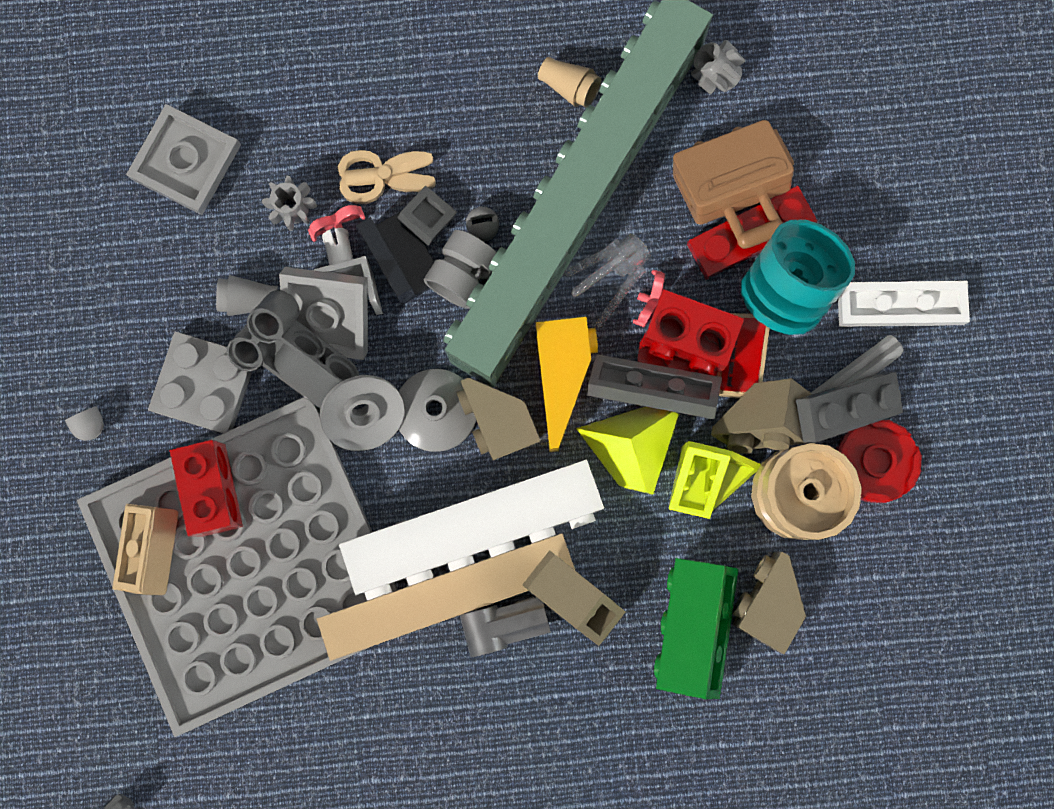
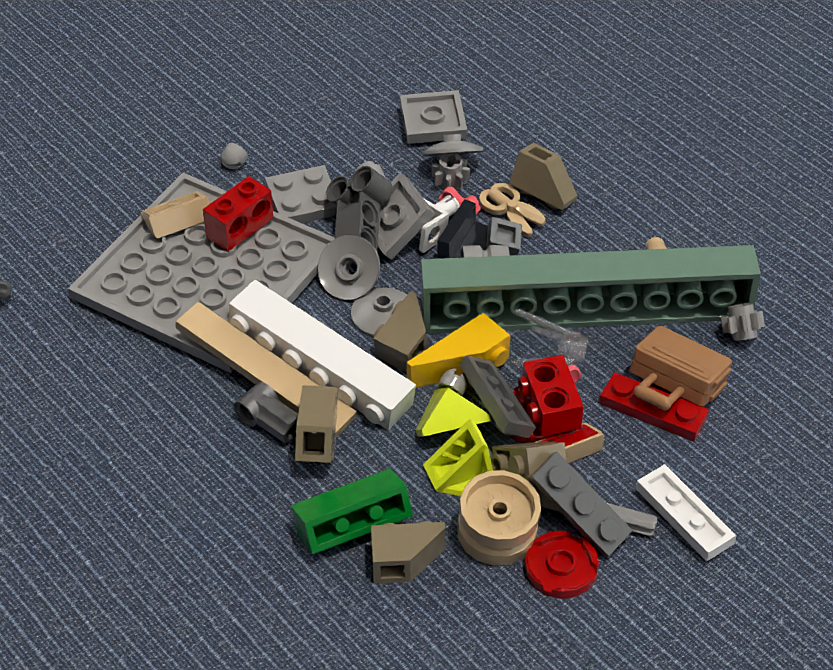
camera: 50 degrees right, 35 degrees down
(264, 181) = (452, 144): none -> light grey dish
(376, 113) = (543, 175): none -> dark tan slope
(593, 411) = (453, 381): none -> light grey hinge
(797, 277) = (639, 422): teal wheel -> none

